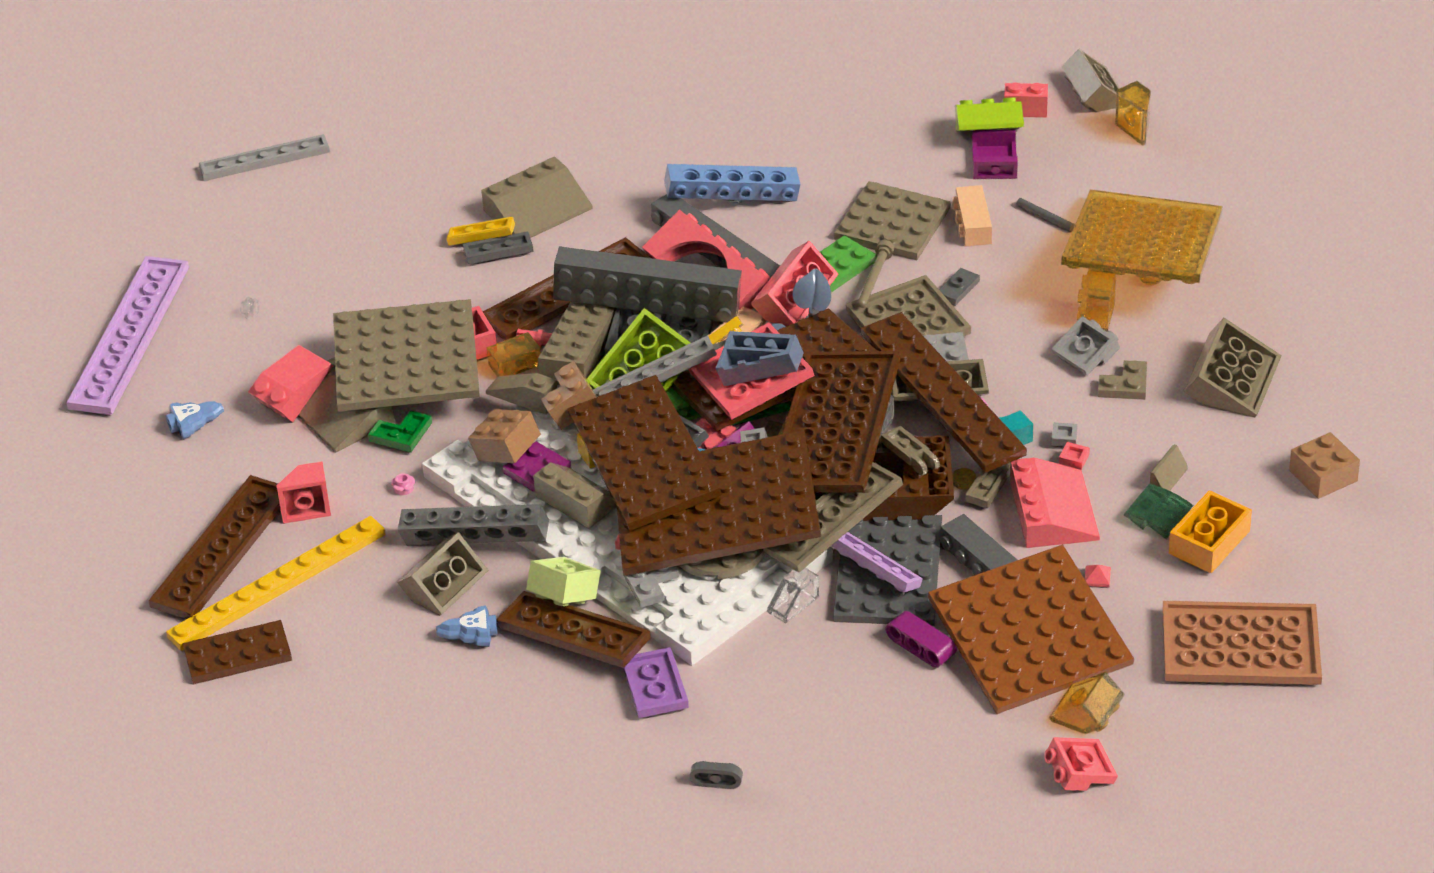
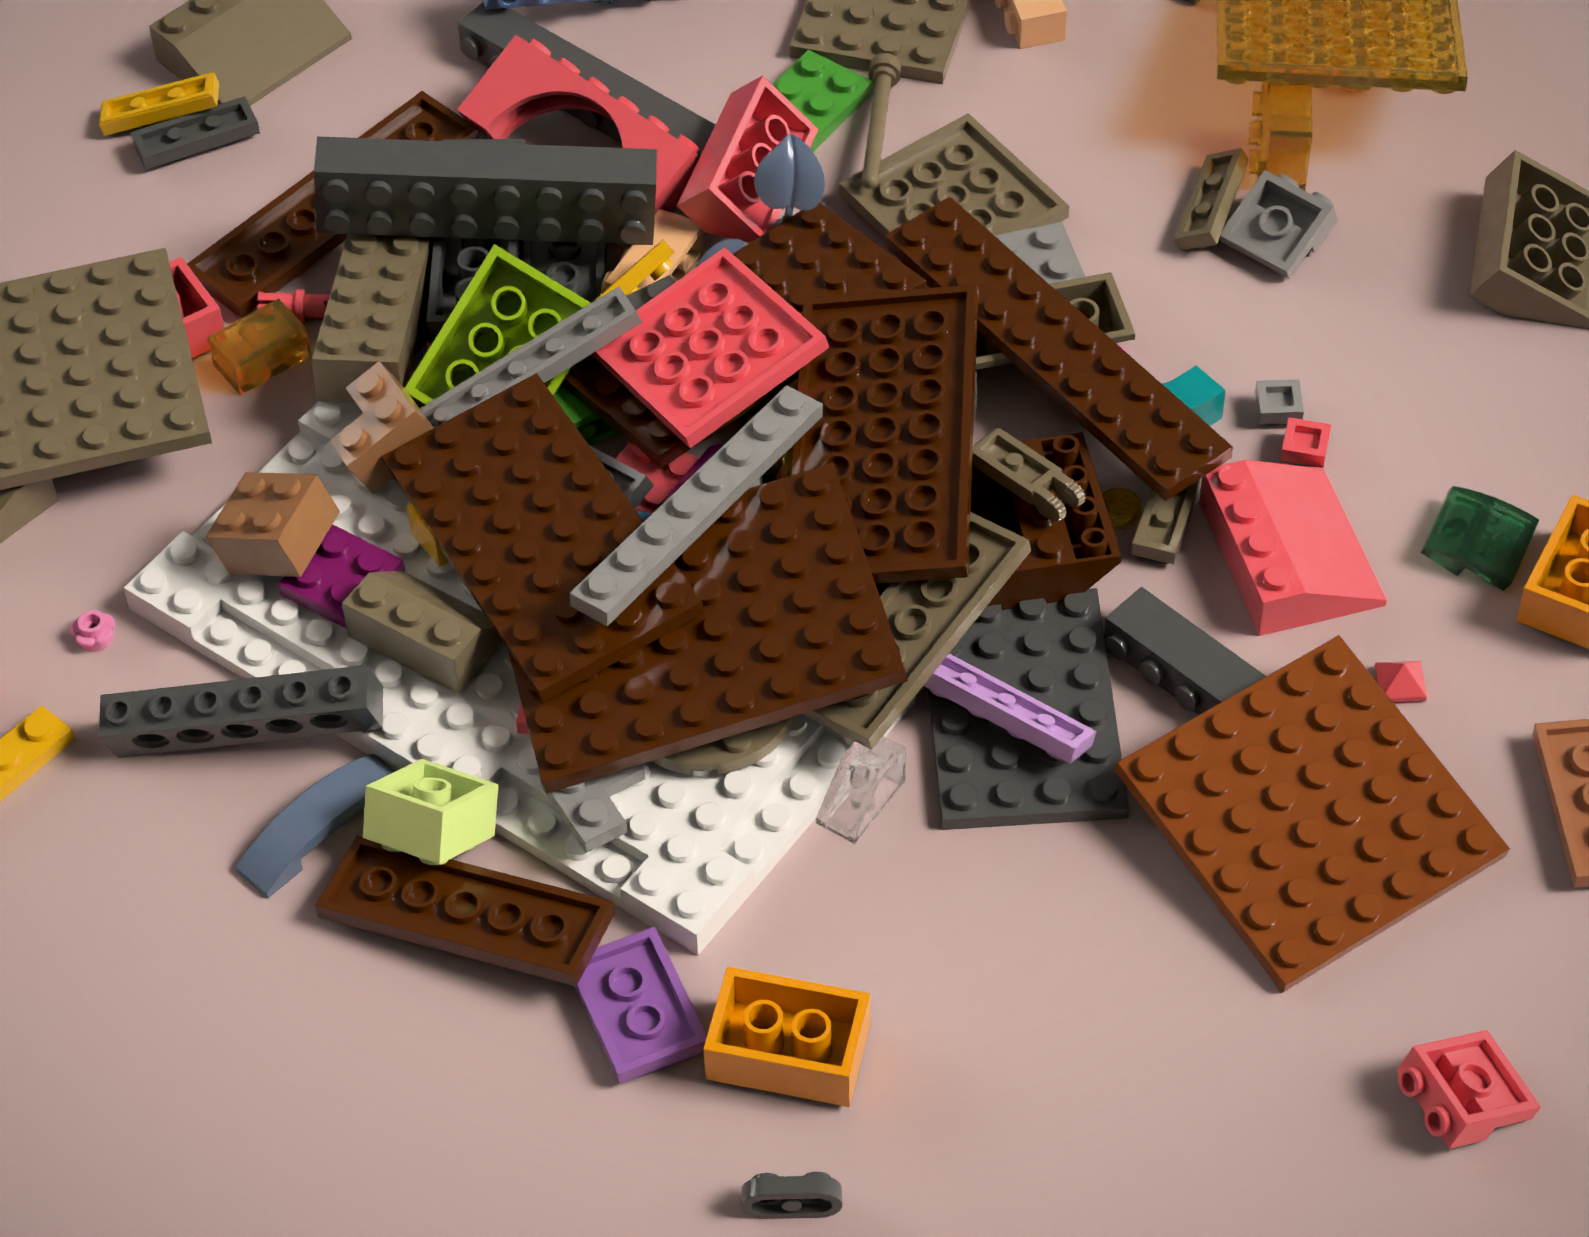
camera: 10 degrees left, 10 degrees up
(401, 436) = (77, 532): green plate -> none
(443, 575) = (198, 818): dark tan slope -> none
(472, 627) = (268, 925): medium blue rock -> none
(497, 583) = (307, 822): none -> sand blue slope
(523, 390) = (292, 421): dark tan slope -> none
(726, 442) = (695, 506): none -> light grey plate
(728, 702) = (787, 1036): none -> light orange brick
(757, 356) = (723, 323): sand blue wedge -> none
(921, 639) = (1114, 853): magenta beam -> none
(959, 285) = (1028, 126): dark grey plate -> none
(1052, 330) = (1211, 199): none -> dark tan plate
(1088, 704) = (1450, 957): clear yellow slope -> none
(1129, 386) = (1365, 292): dark tan plate -> none
(1169, 469) = (1480, 453): dark tan slope -> none

